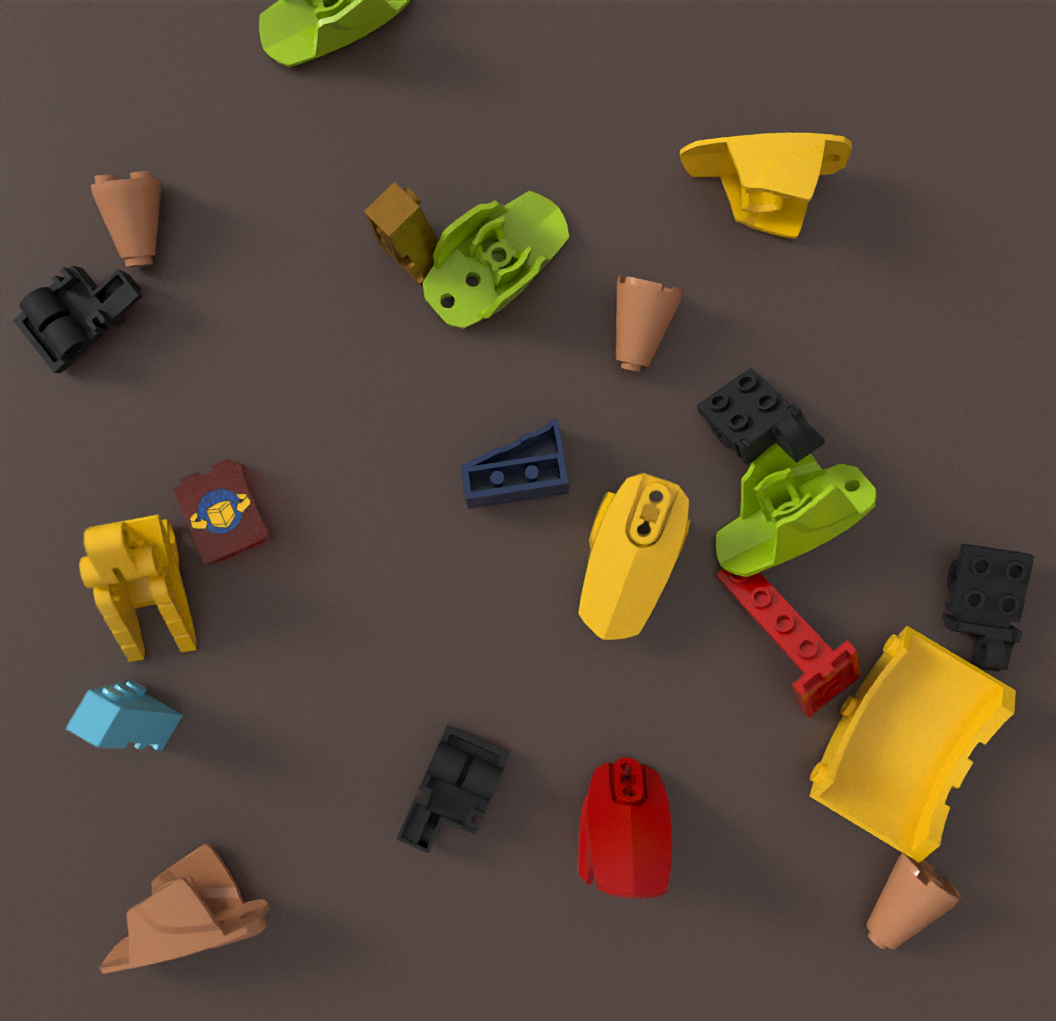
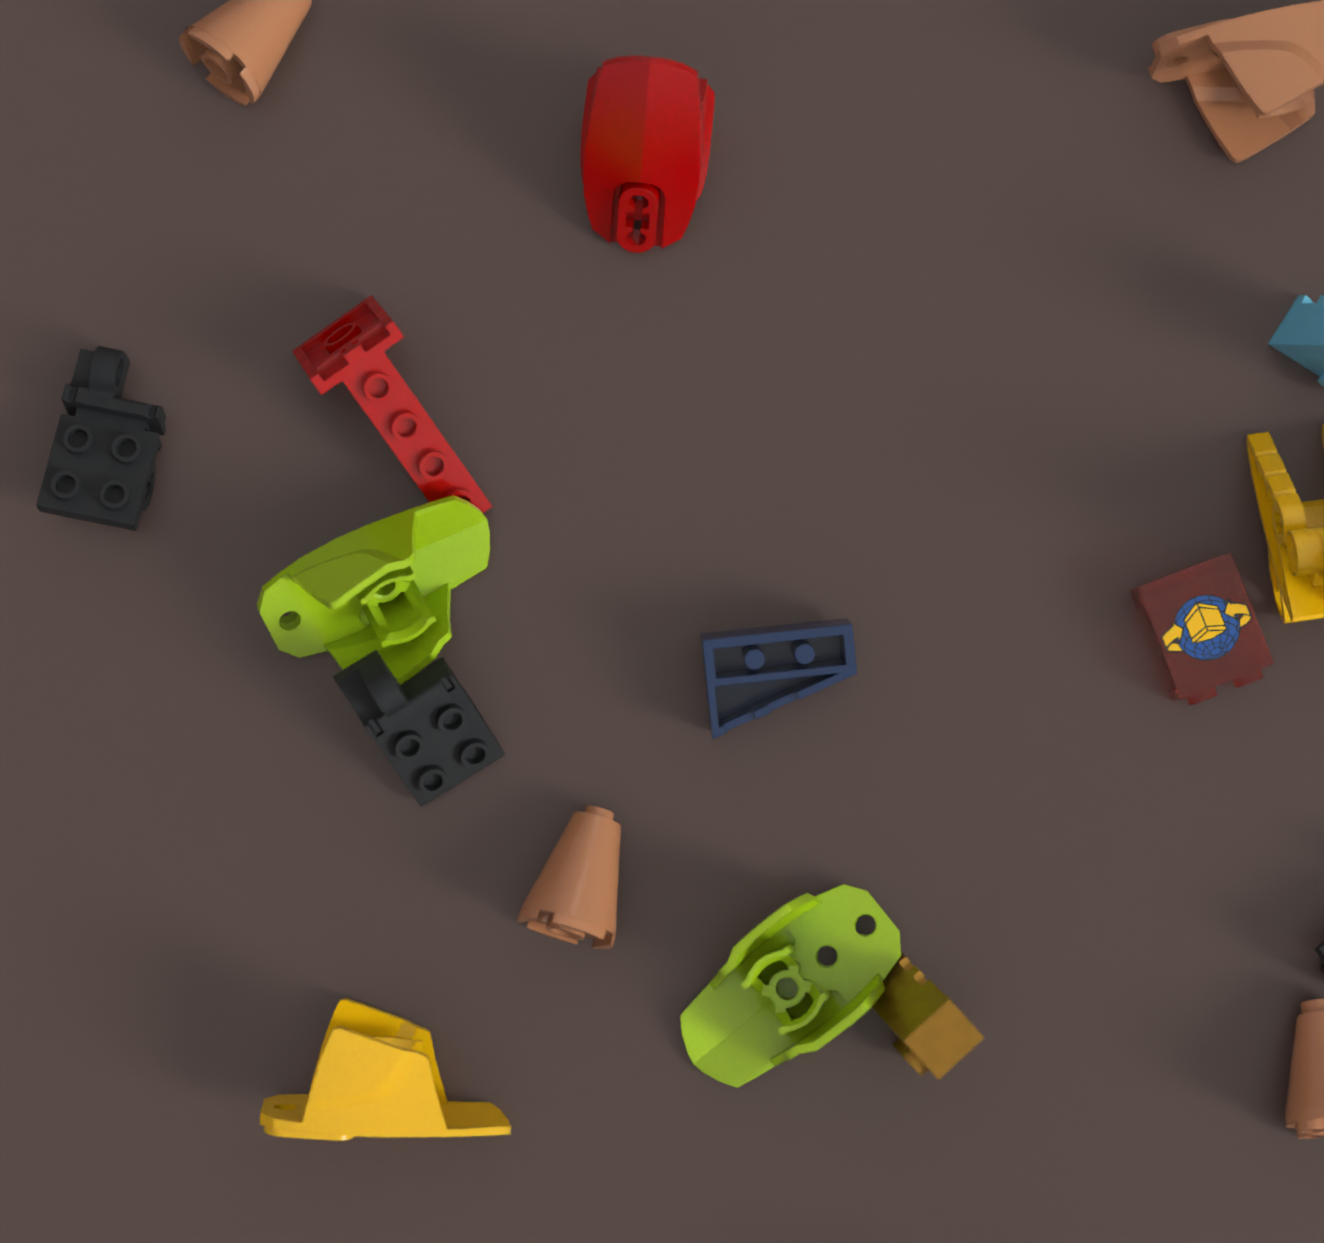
camera: 175 degrees left, 0 degrees up
(456, 785) = (880, 222): black plate -> none
(627, 567) = (621, 513): yellow piece -> none
(909, 741) = (235, 253): yellow panel -> none

